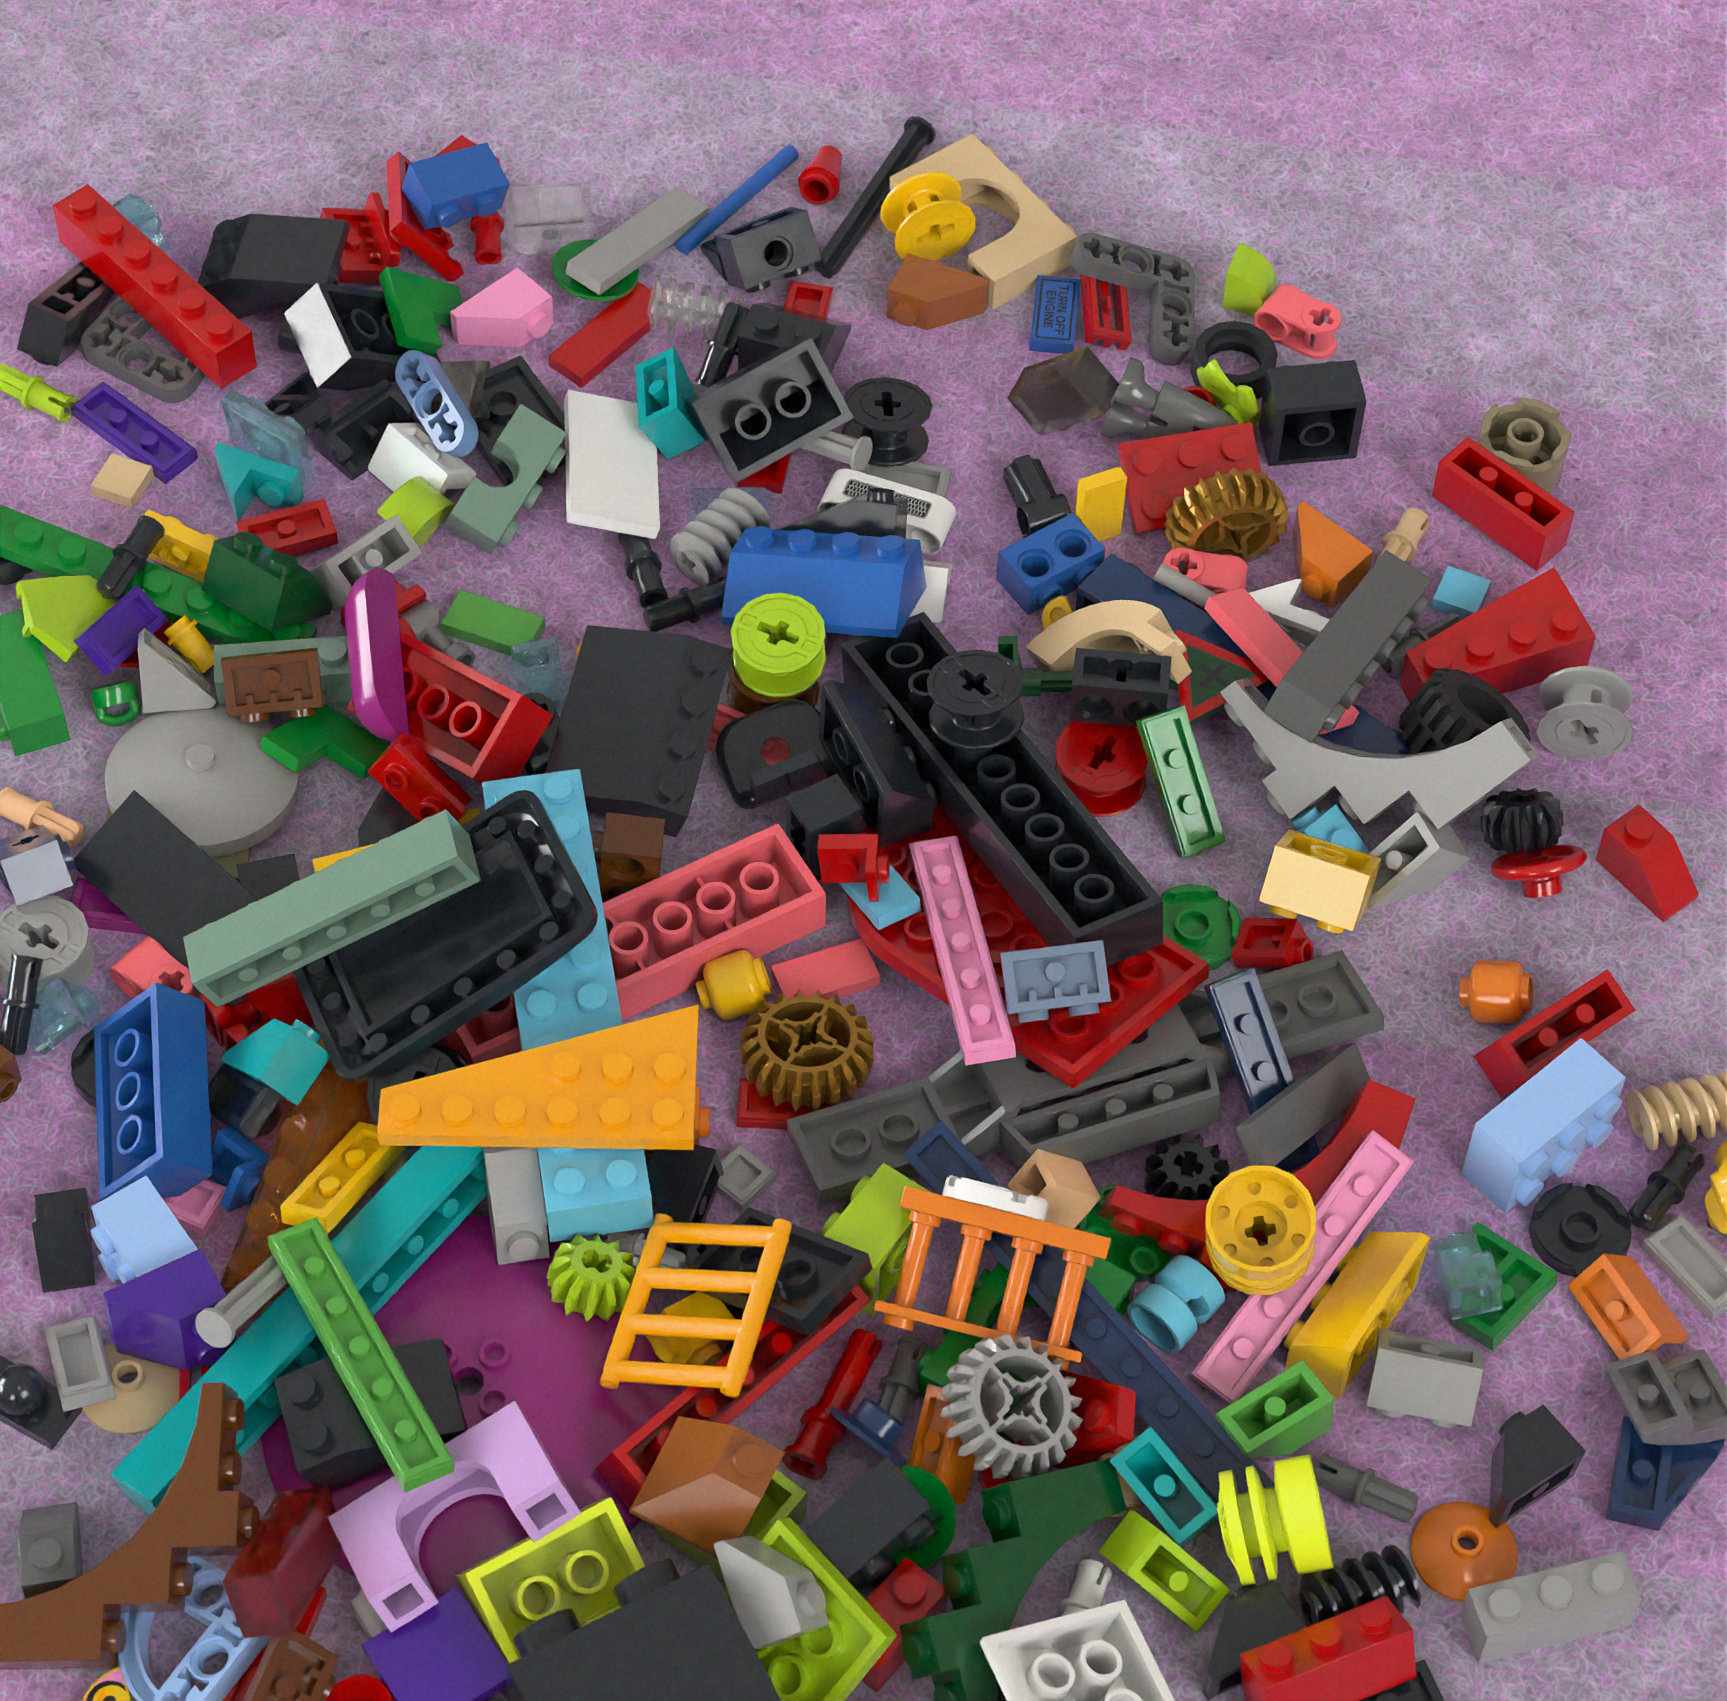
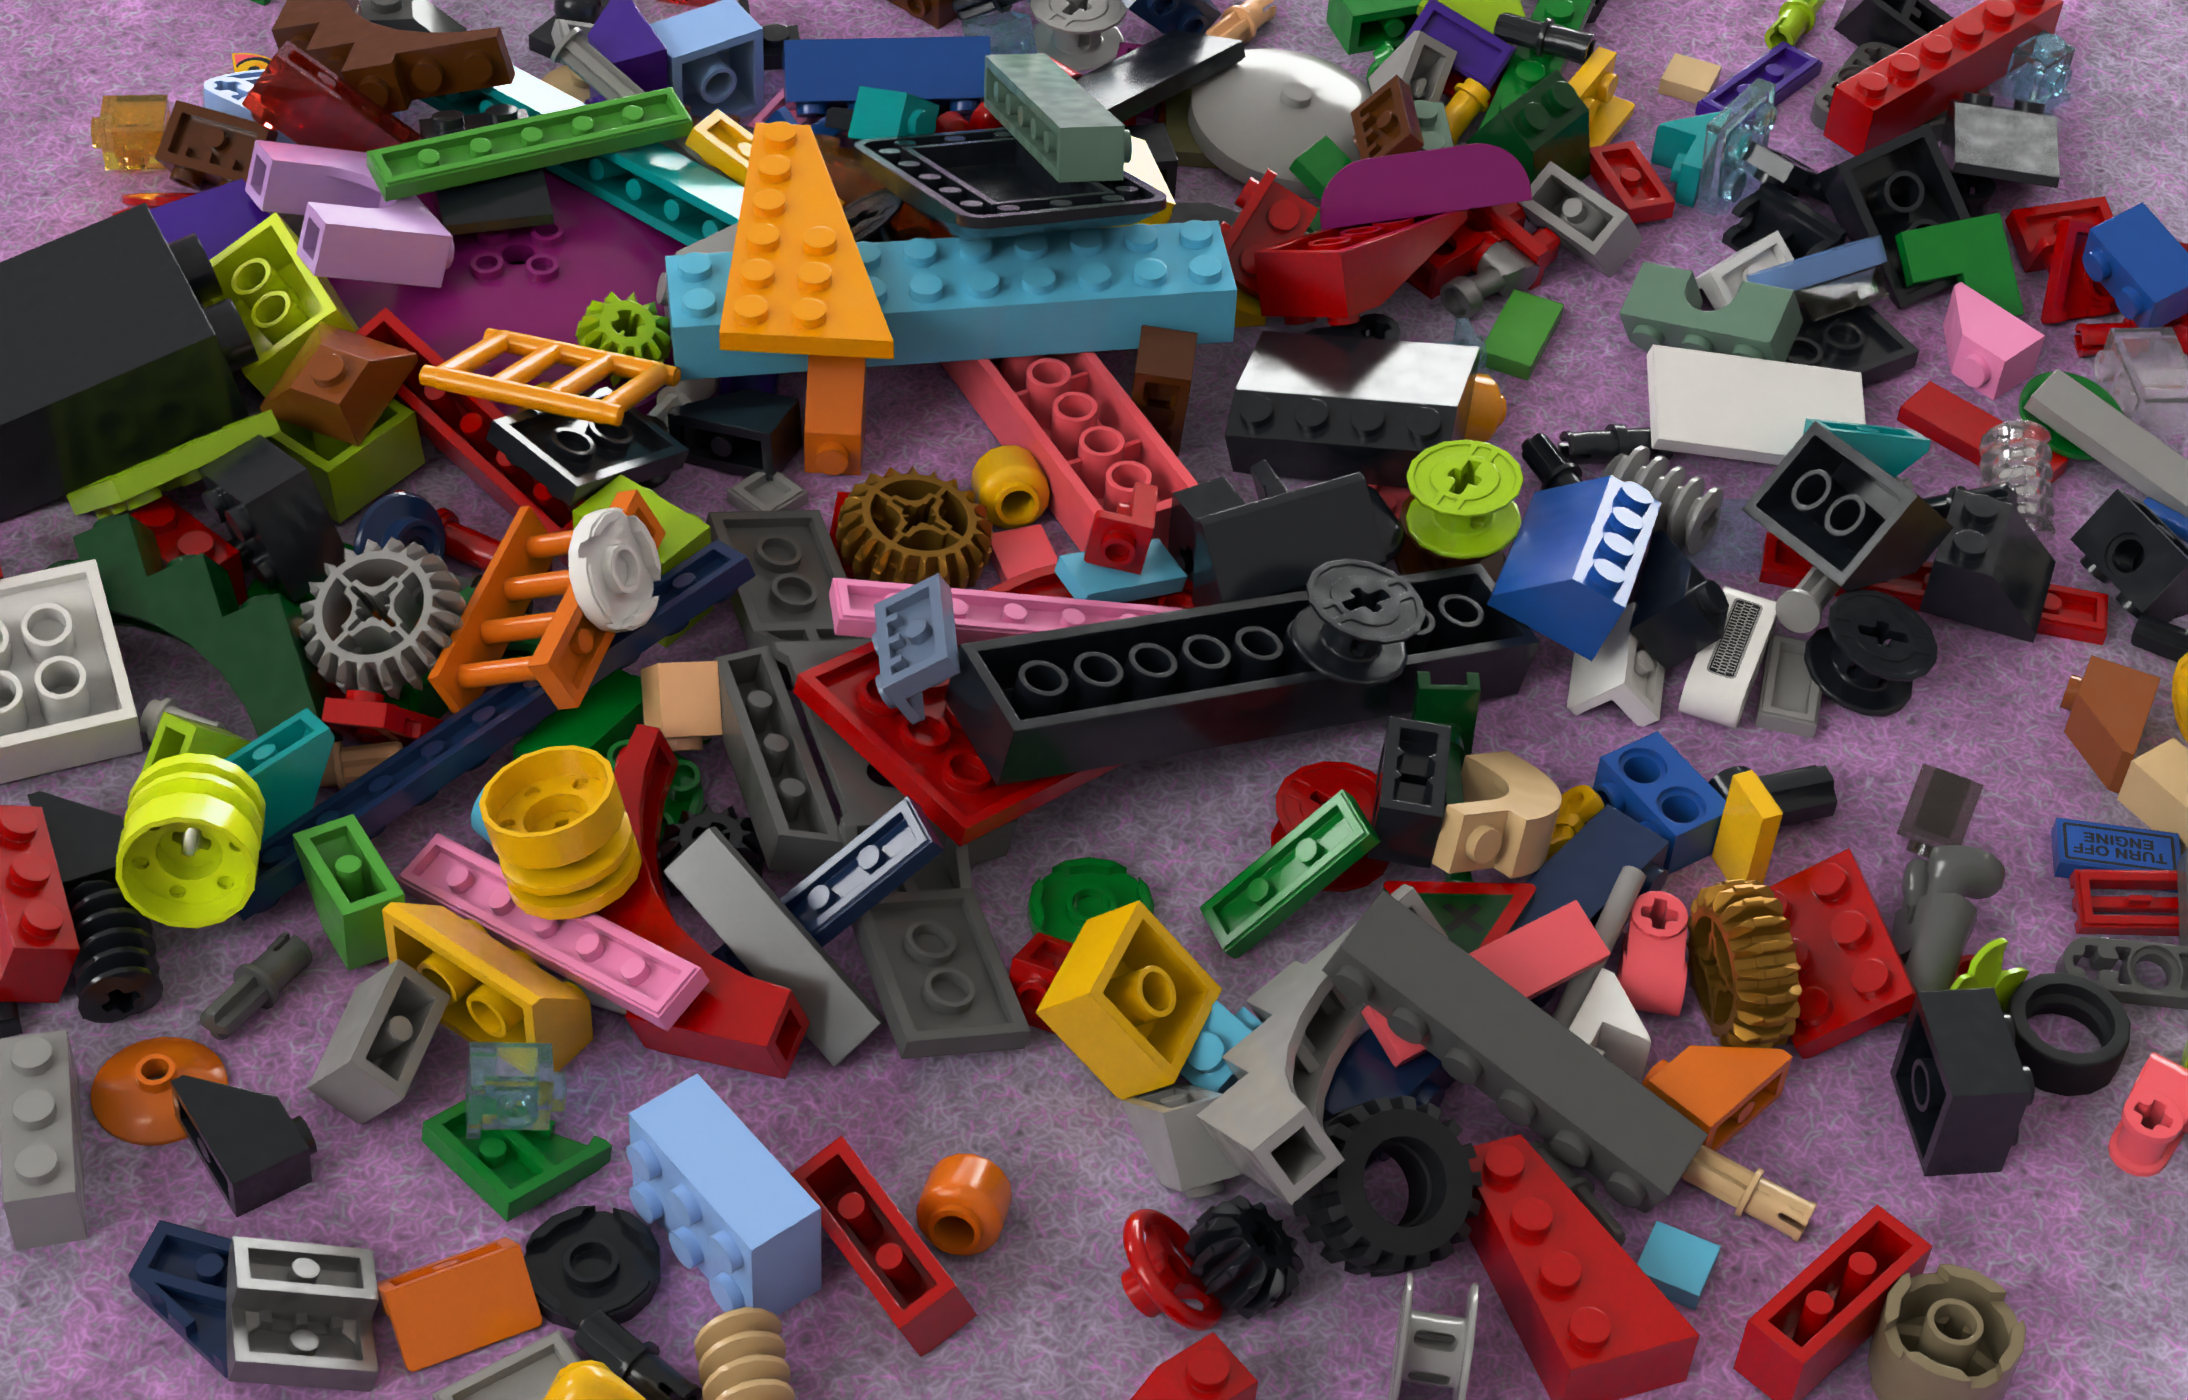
camera: 90 degrees right, 10 degrees down
(418, 508) = (1662, 245): lime brick -> none
(770, 1592) = (200, 406): light grey slope -> none

